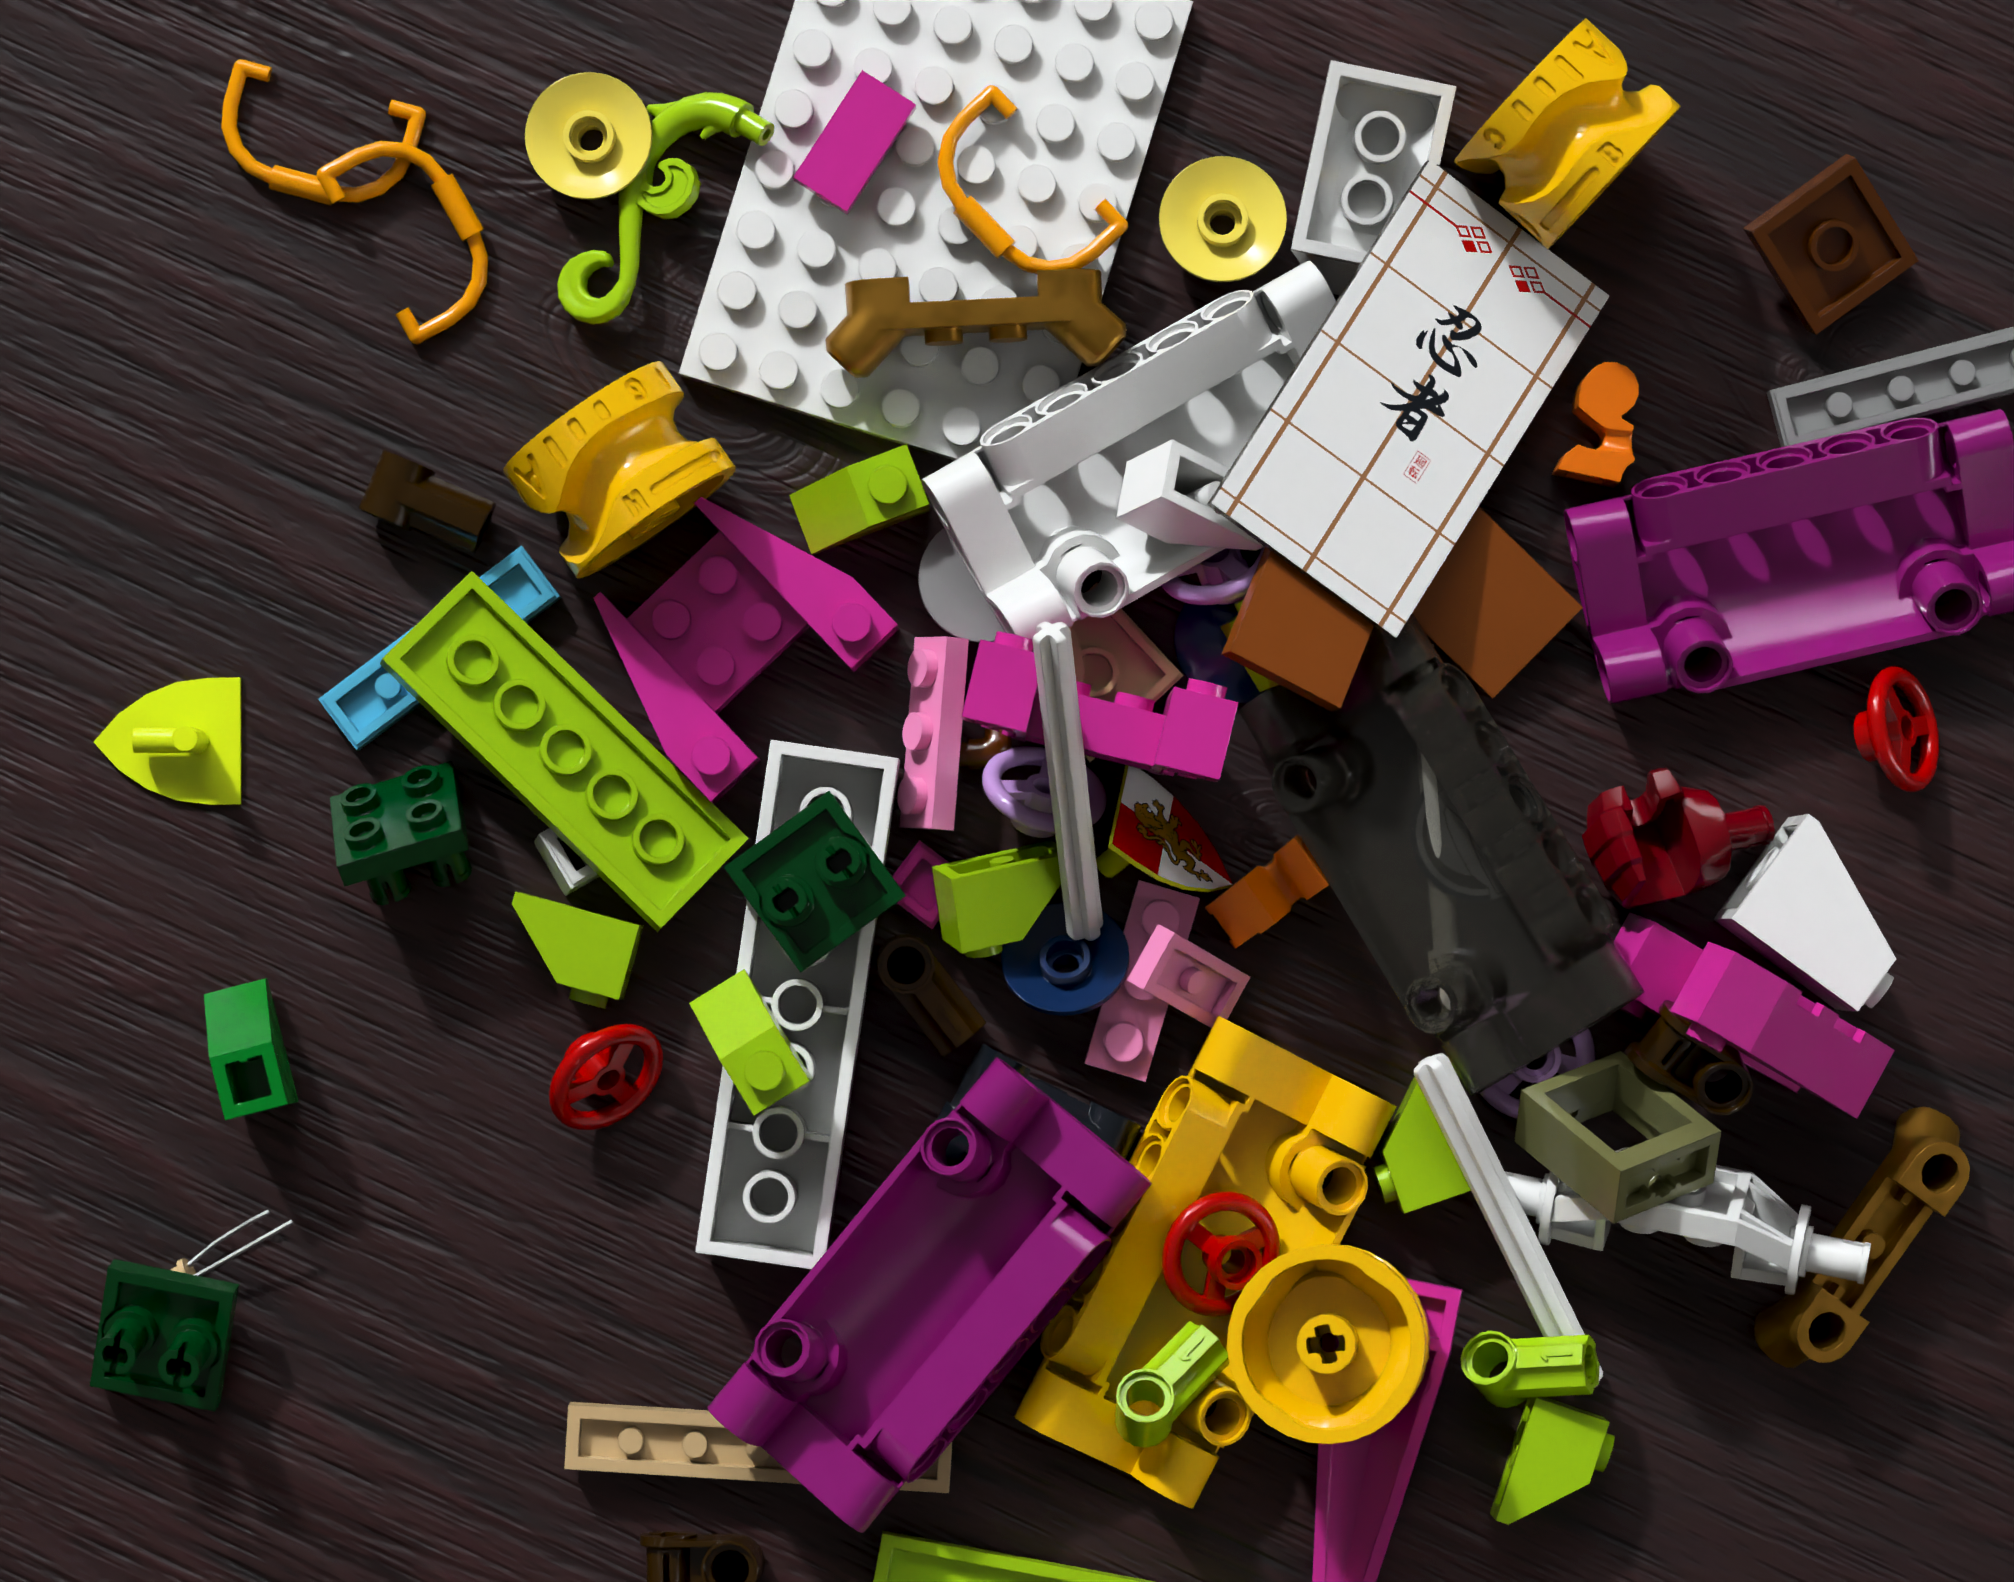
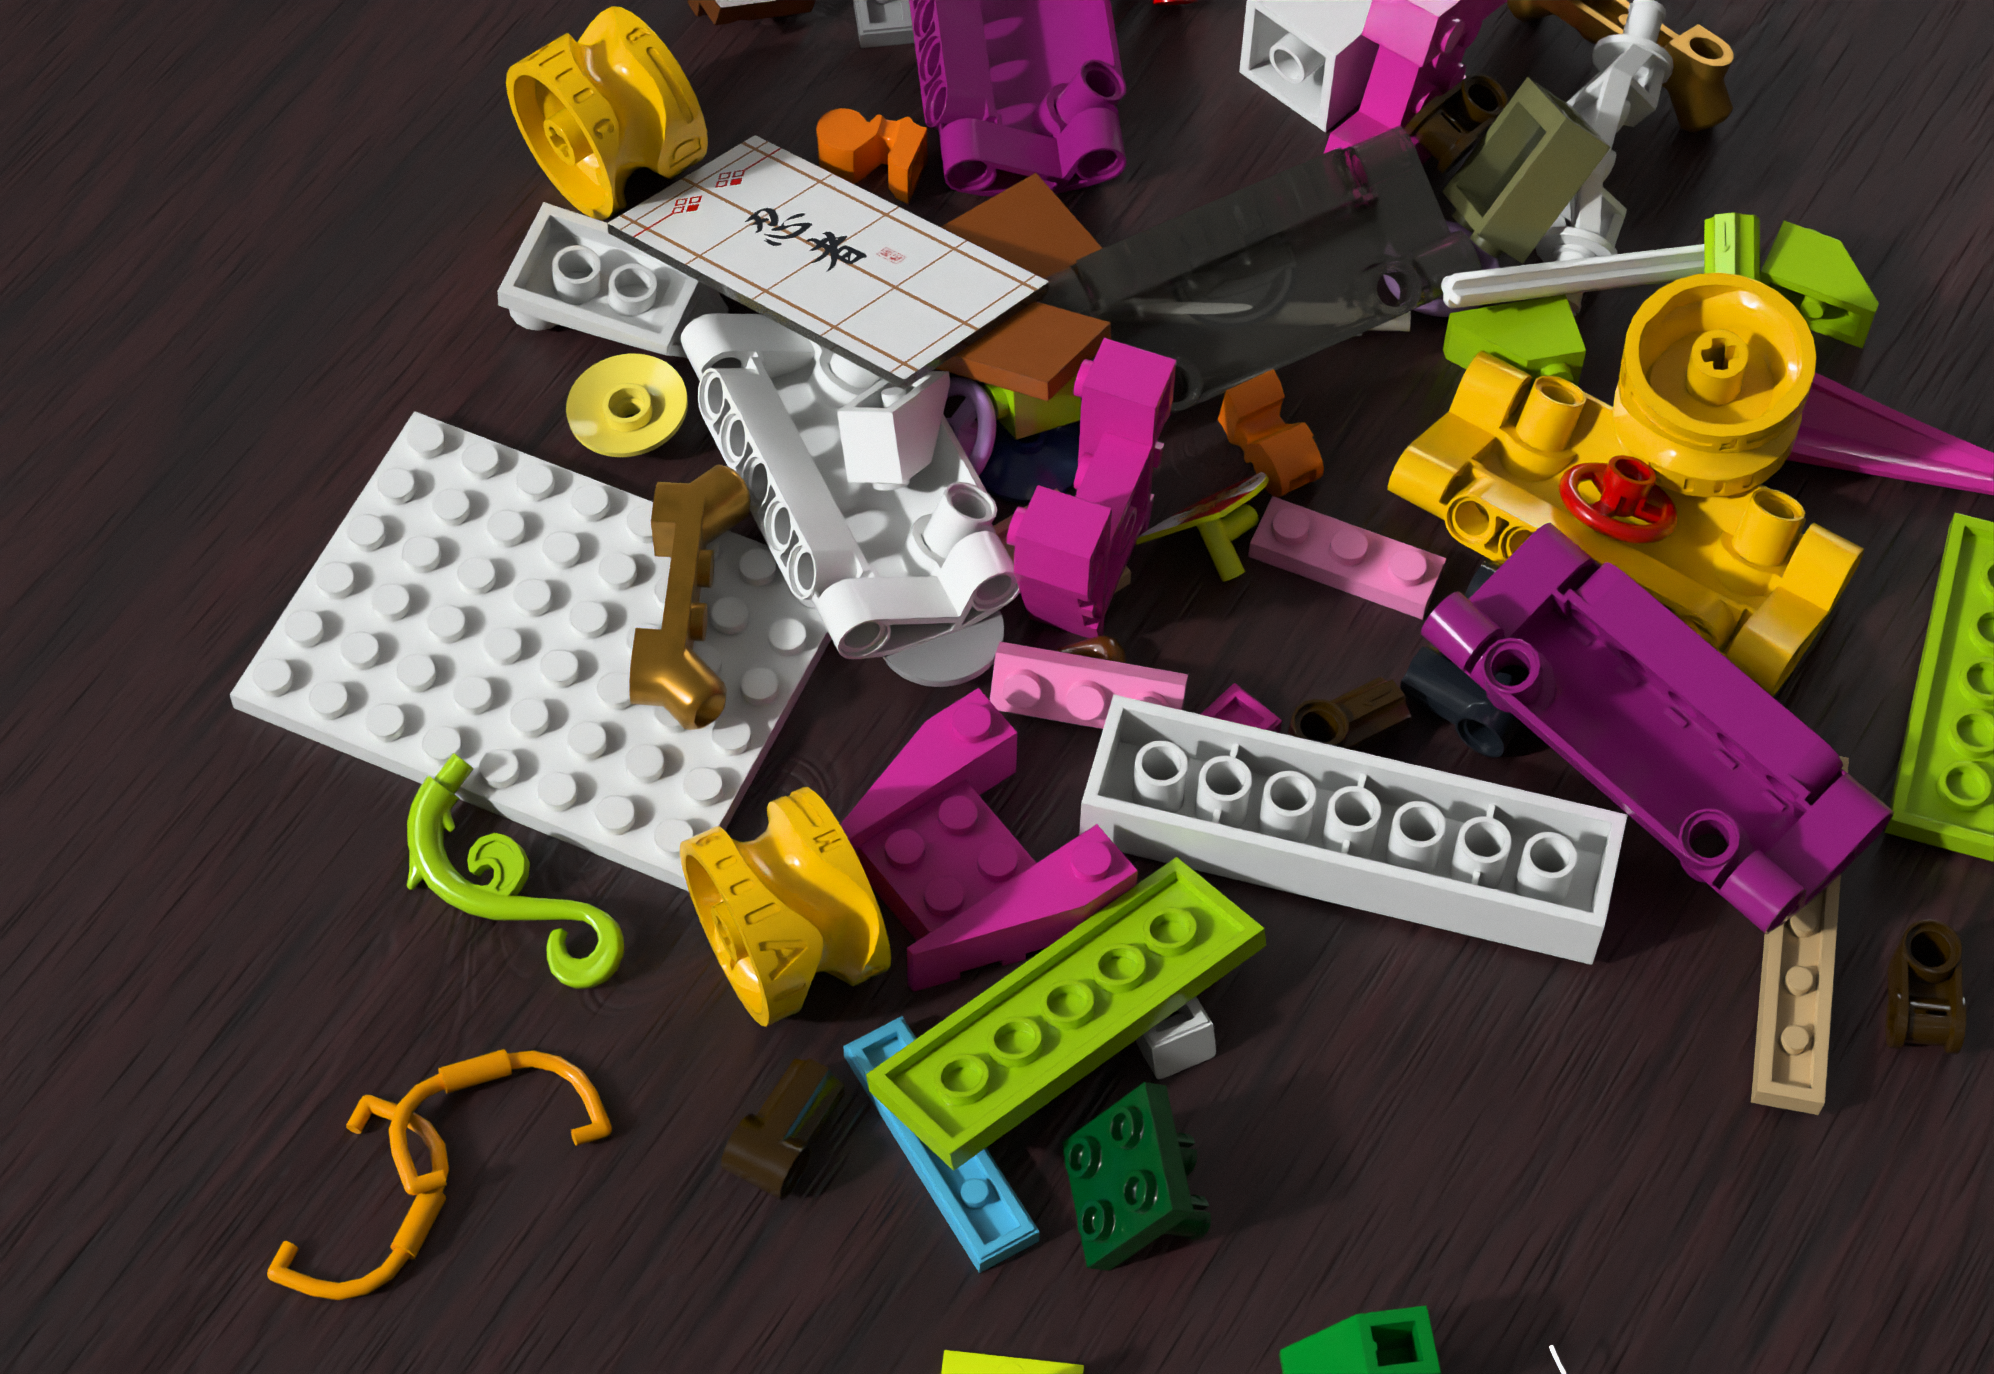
camera: 85 degrees left, 30 degrees down
(570, 110) = (422, 905): light yellow dish -> none
(581, 947) = (1273, 1030): lime slope -> none
(597, 1067) = (1407, 1019): red piece -> none
(750, 1042) = (1396, 834): lime slope -> none
(815, 881) = (1232, 762): dark green plate -> none
(854, 142) = (489, 685): dark pink tile -> none
(860, 500) = (843, 724): lime slope -> none
(984, 225) = (589, 589): light orange piece -> none
(994, 896) = (1256, 651): lime slope -> none
(1029, 801) = (1165, 605): lavender piece -> none
(1032, 965) = (1307, 592): dark blue dish -> none
(1068, 779) = (1157, 519): white axle -> none
(1171, 1382) = (1747, 546): lime piece -> none
(1188, 977) = (1349, 499): bright pink plate -> none
(1667, 839) = (1251, 128): dark red piece -> none

